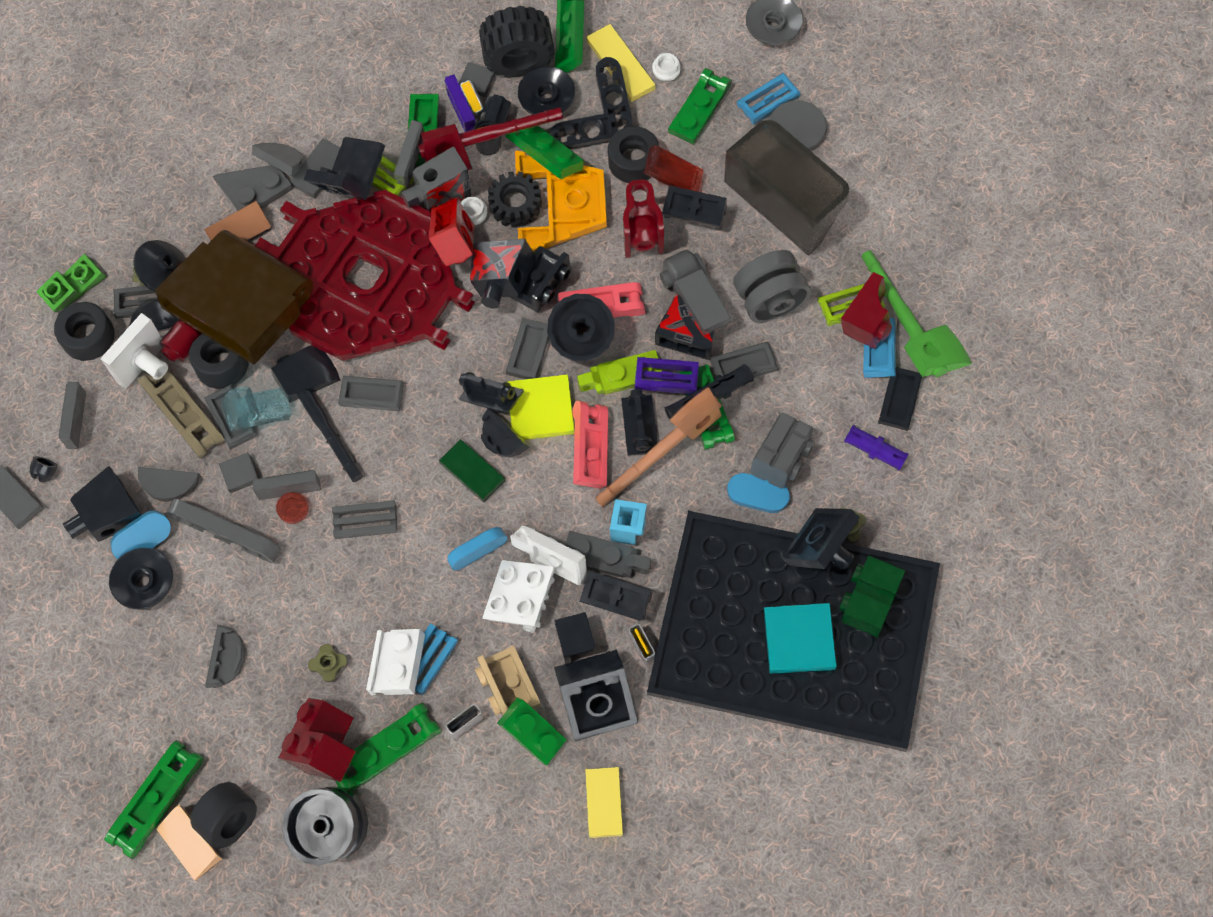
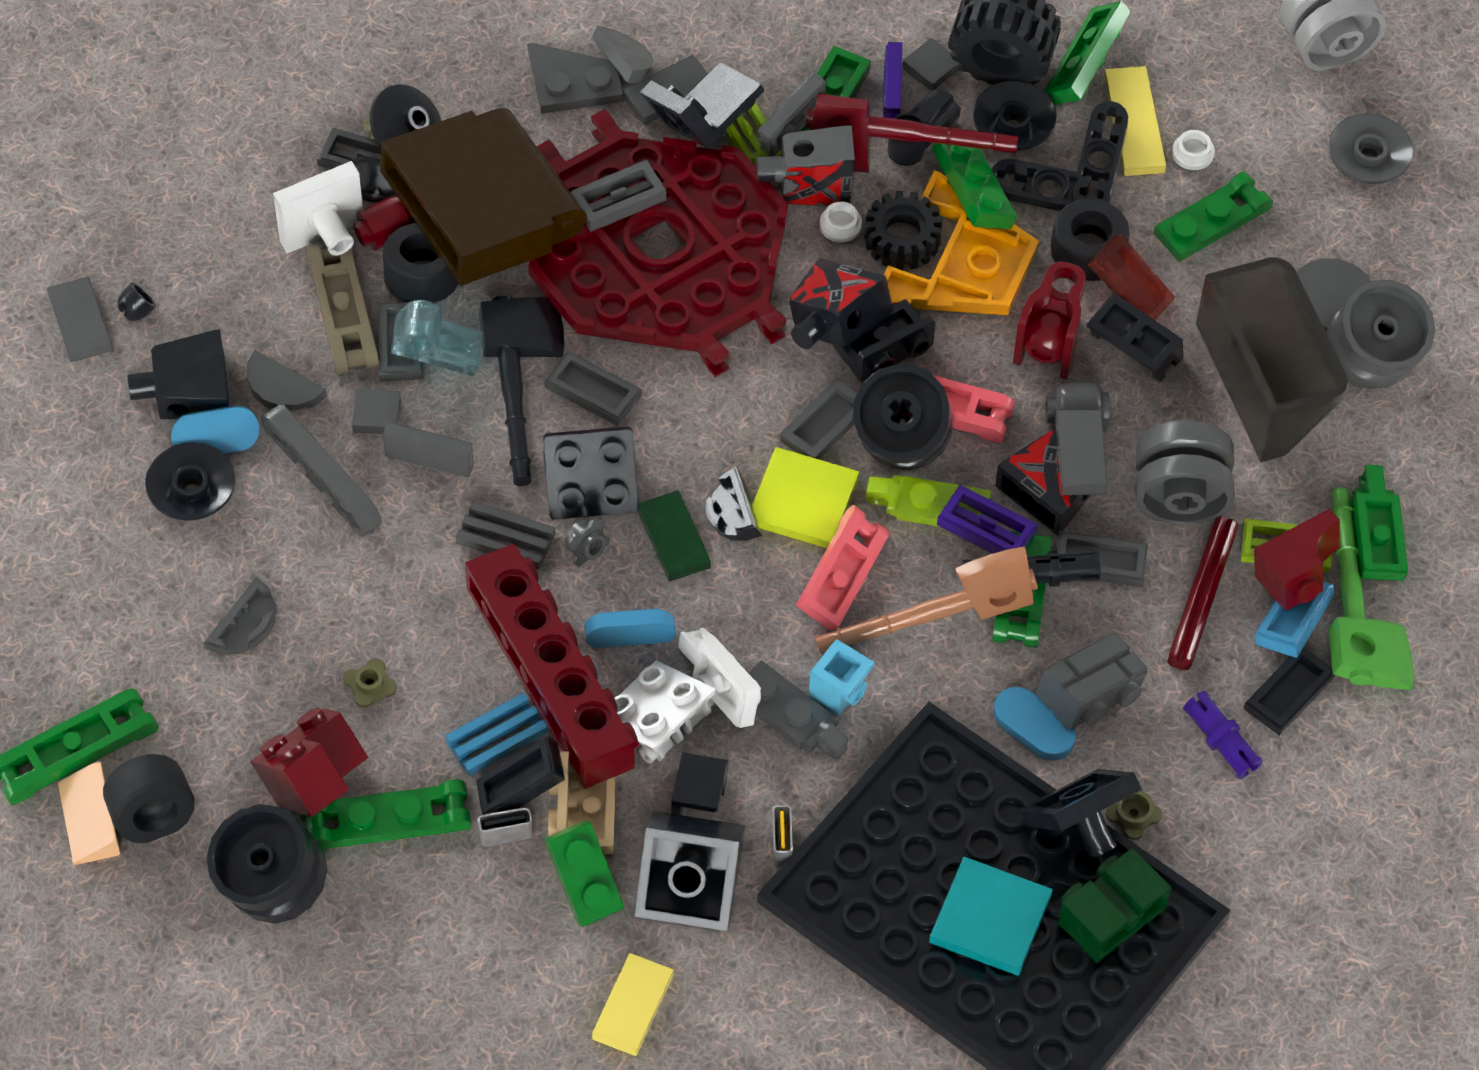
camera: 20 degrees right, 10 degrees down
(65, 288) = (272, 102): bright green slope -> none
(72, 415) = (205, 253): dark grey tile -> none
(94, 344) = (263, 140): black tyre -> none
(243, 223) = (539, 115): nougat tile -> none
(292, 508) = (421, 482): clear red tile -> none
(343, 242) = (622, 201): none -> dark grey tile
(395, 662) = (455, 717): white plate -> none
(400, 454) = (590, 472): none -> black bracket
(419, 500) = (586, 540): none -> dark grey plate
(451, 232) = (796, 232): red brick -> none
(459, 686) = (521, 778): none -> black tile
(472, 96) = (912, 80): yellow piece -> none
(489, 393) = (744, 448): black hinge -> none
(497, 649) = (514, 605): none -> dark red brick
(616, 596) = (779, 761): black hinge -> none
(639, 422) = (922, 568): black hinge -> none
(749, 111) = (1313, 250): dark azure tile -> none
(817, 359) = (1202, 593): none -> dark red axle
(845, 138) = (1381, 333): none -> dark grey wheel
(901, 267) = (1378, 528): none -> green hinge

